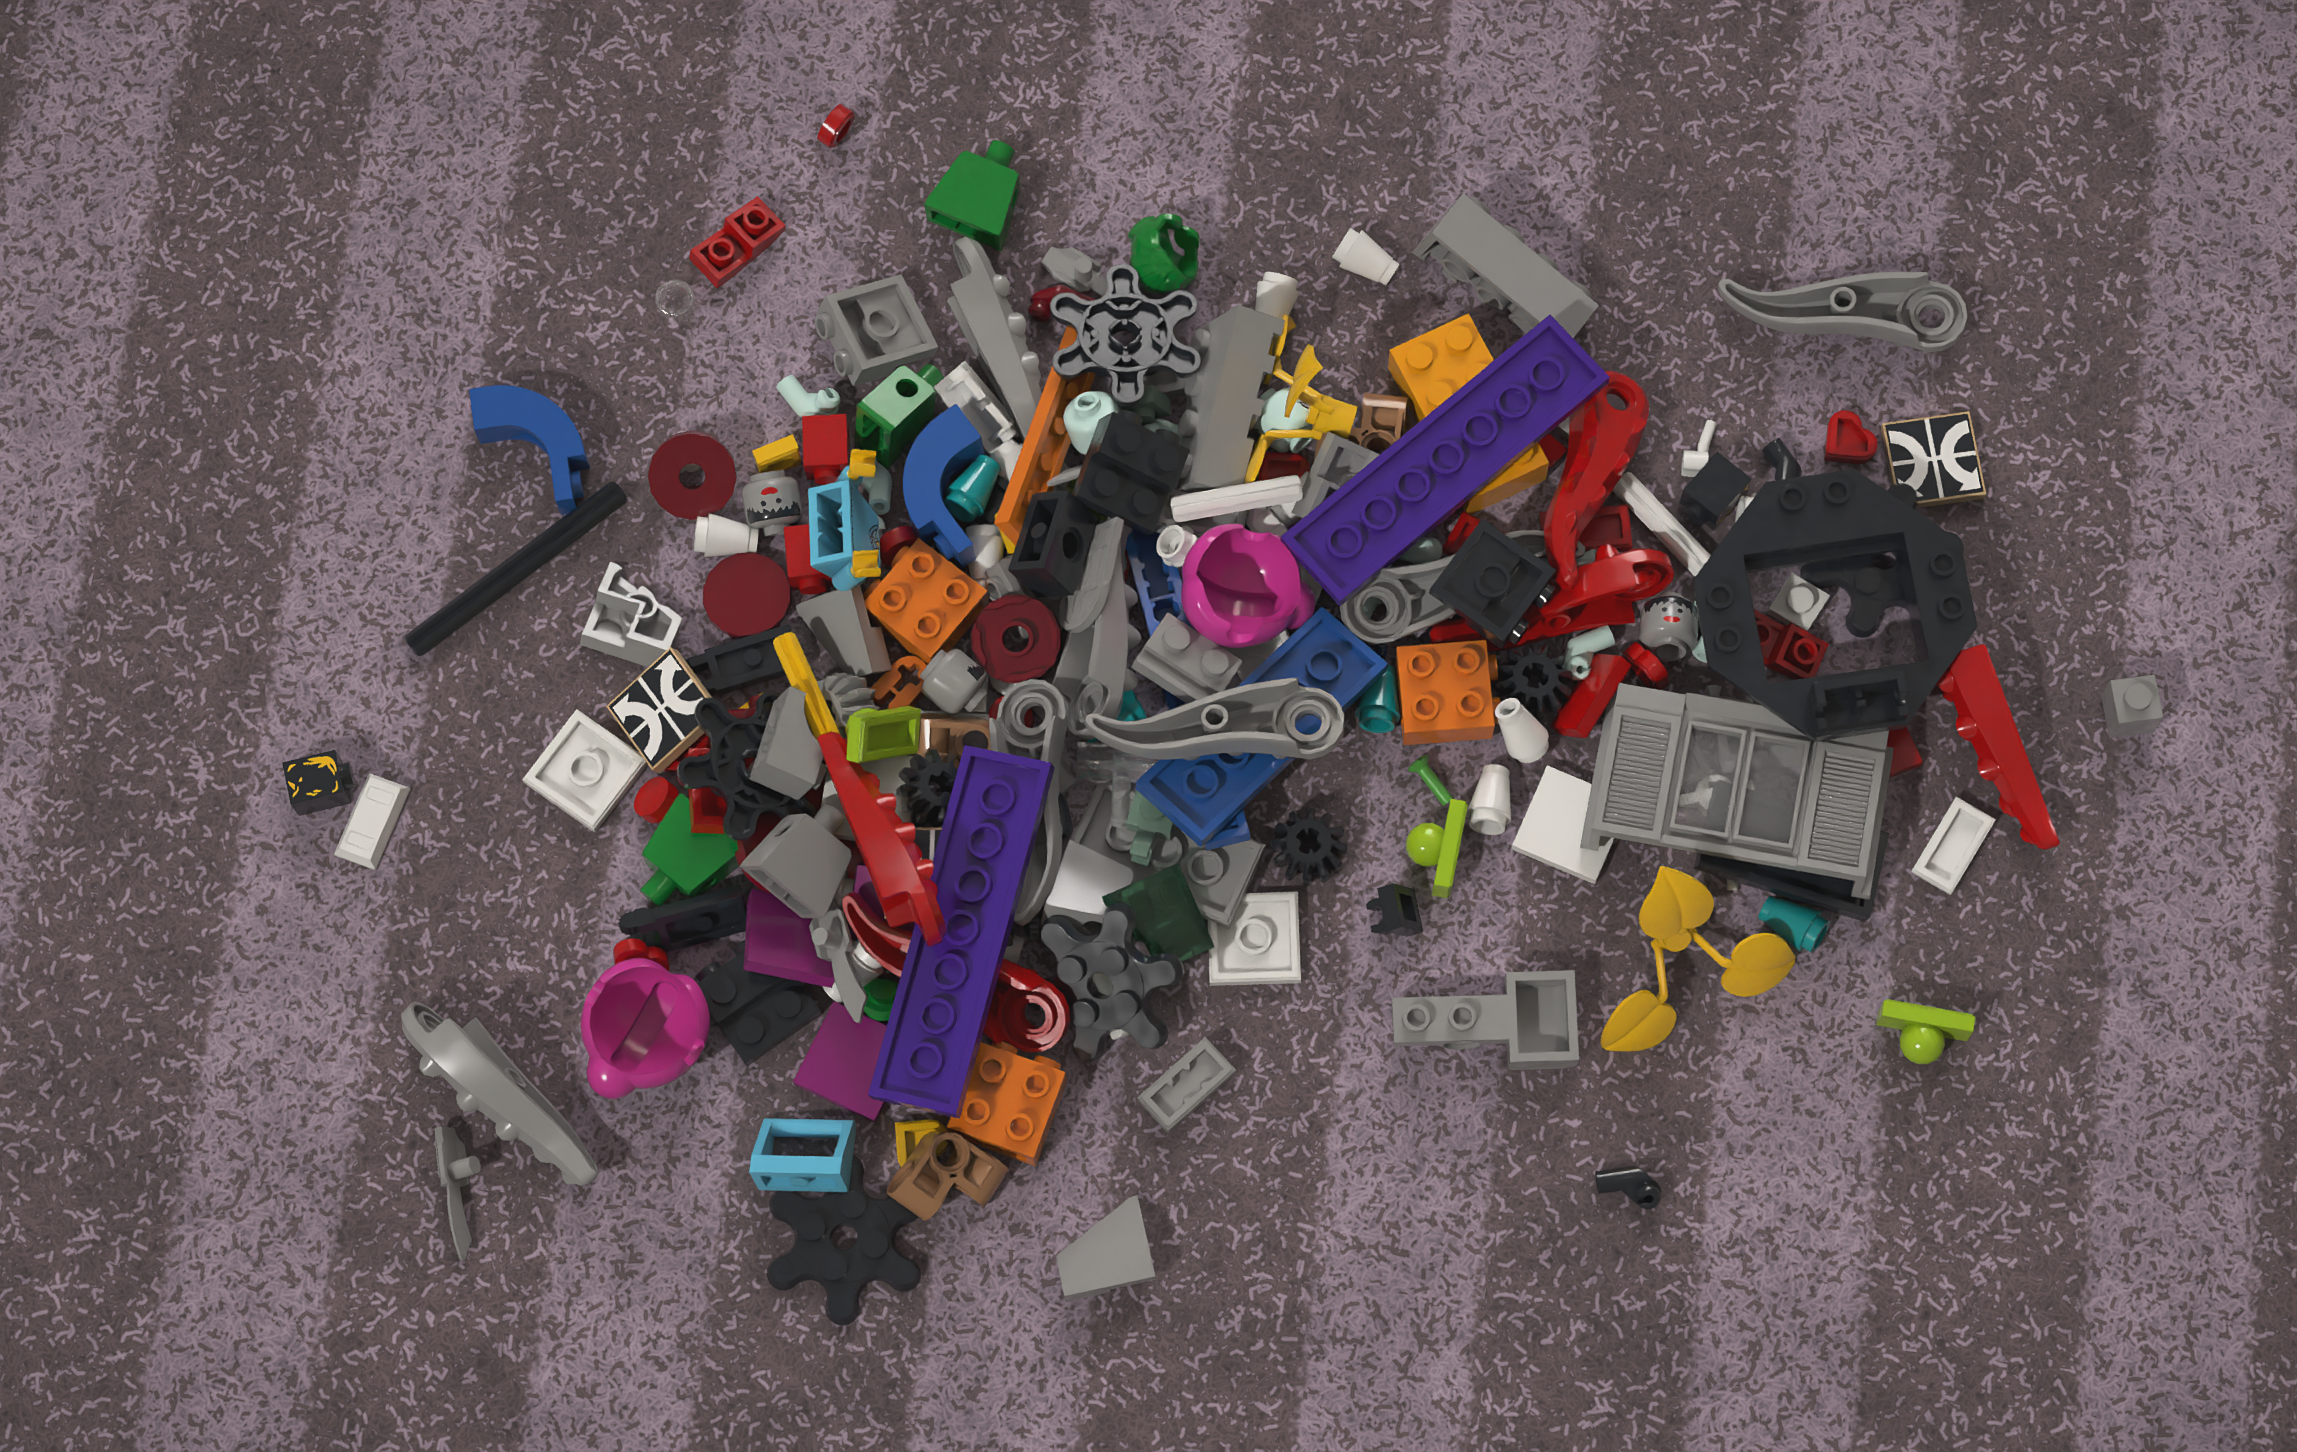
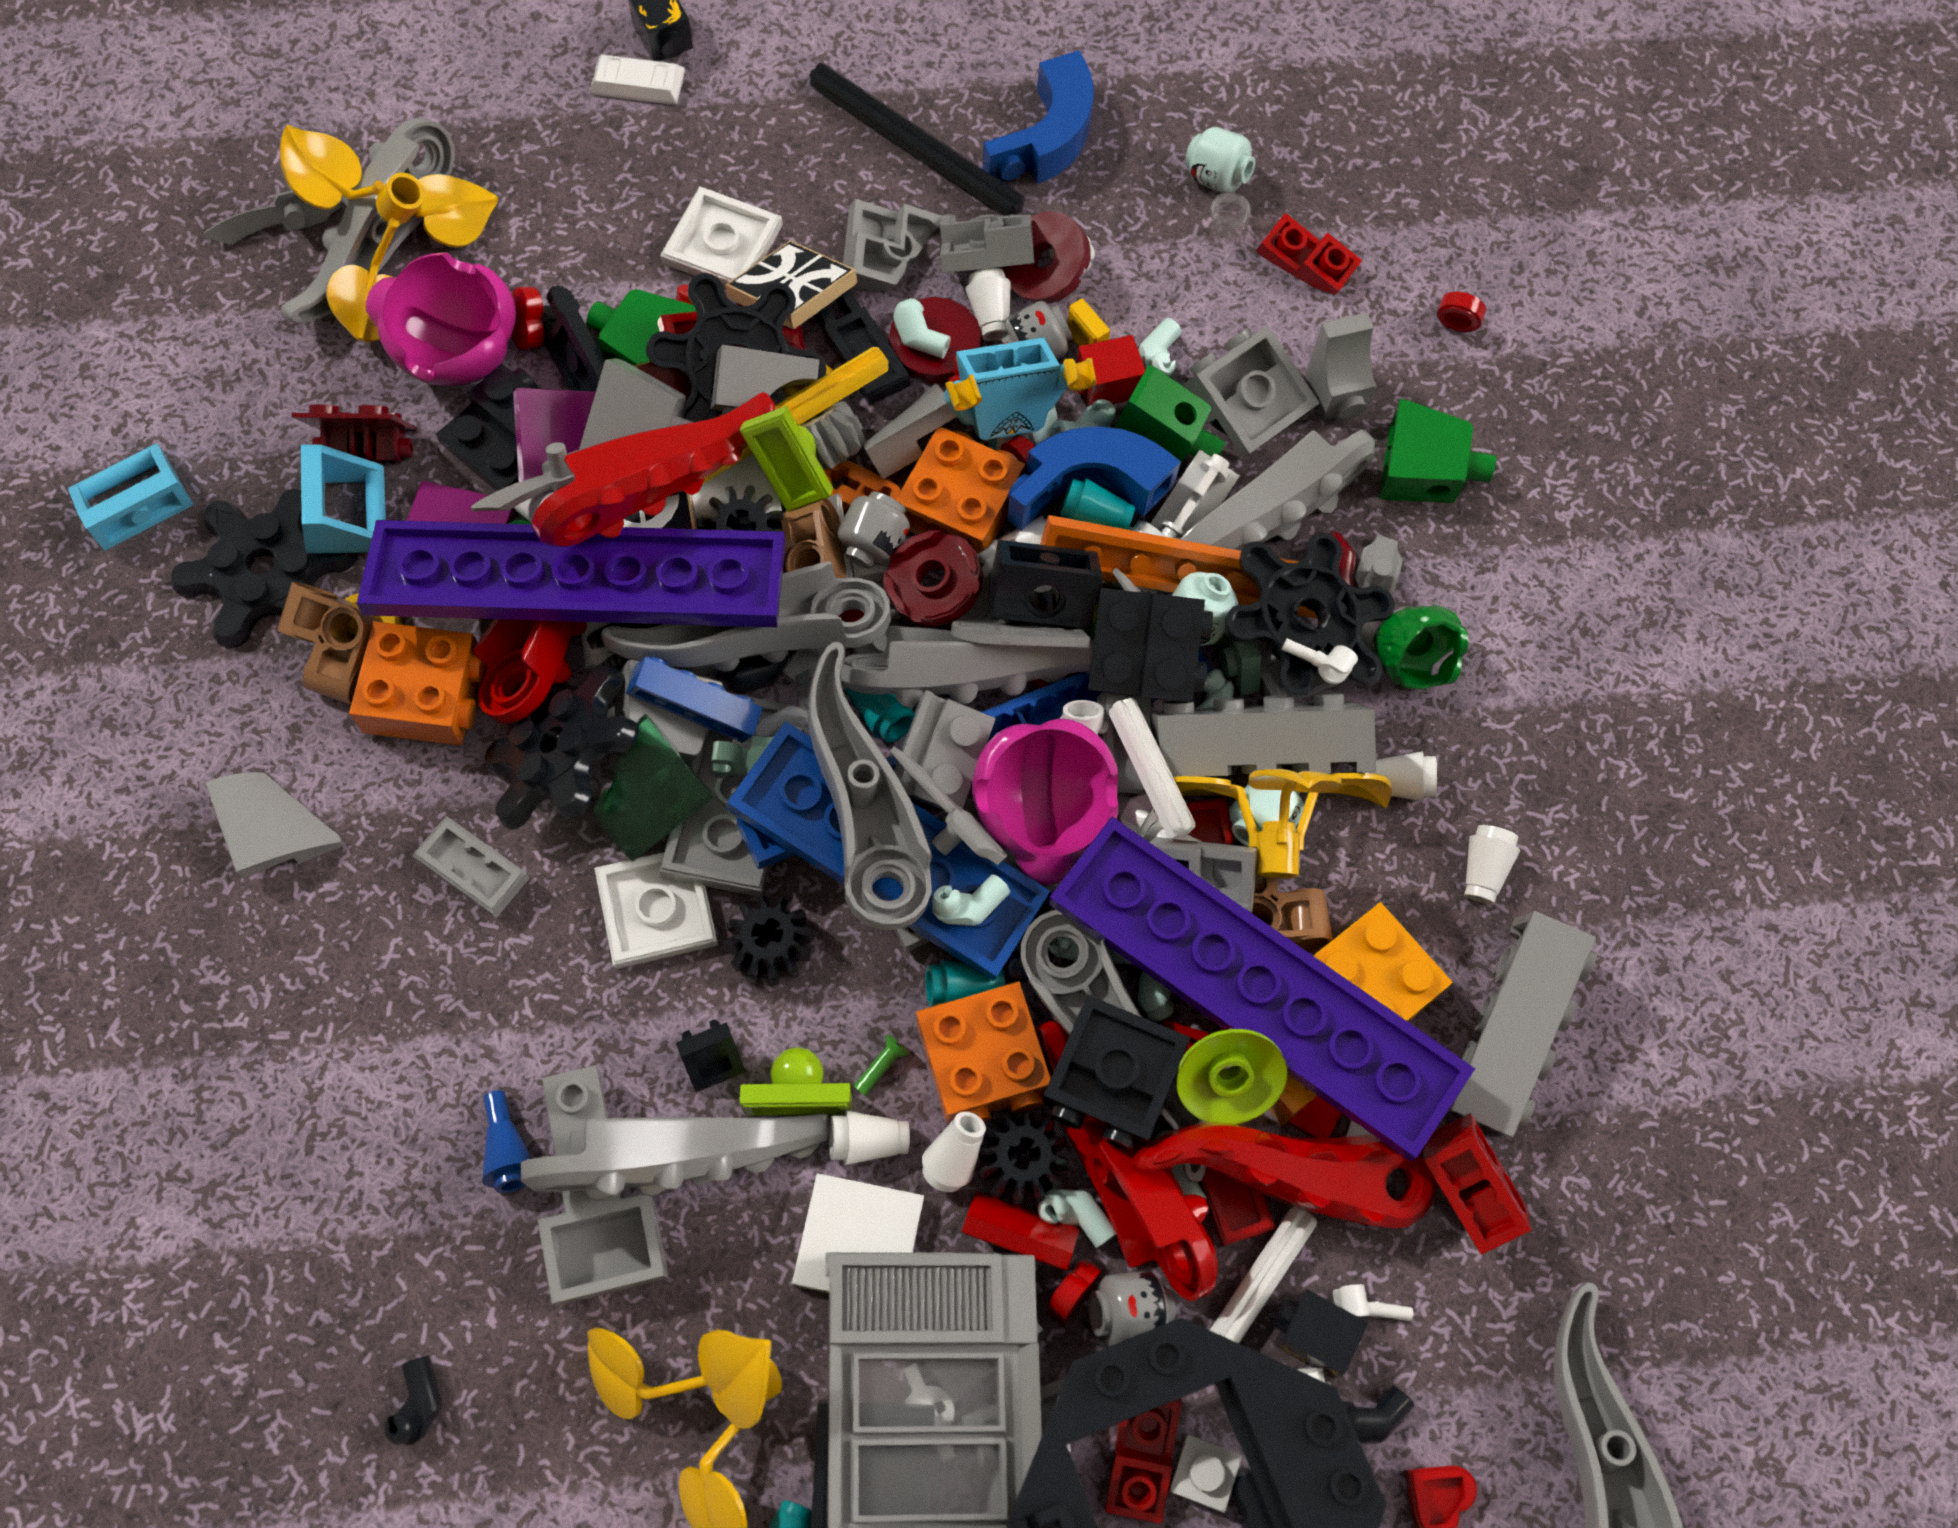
camera: 70 degrees right, 5 degrees down
(495, 1014) = (326, 168): none -> yellow plant
(618, 292) = (1220, 159): none -> light aqua head
(663, 525) = (985, 242): none -> light grey slope
(732, 1107) = (343, 431): none -> dark red hinge
(743, 609) = (914, 331): none -> light aqua arm
(764, 1341) = (135, 507): none -> medium azure tile
(881, 245) = (1342, 367): none -> light grey arch
(1090, 859) = (693, 699): none -> piece
(1183, 328) = (1332, 667): none -> white hand
(1260, 656) = (960, 823): none -> light grey piece
(1330, 667) = (966, 908): none -> light aqua arm
(1446, 1088) = (502, 1147): none -> blue cone
(1480, 946) = (669, 1150): none -> light grey animal
(1517, 497) = (1236, 1092): none -> lime dish
(1632, 341) = (1476, 1184): none -> red brick

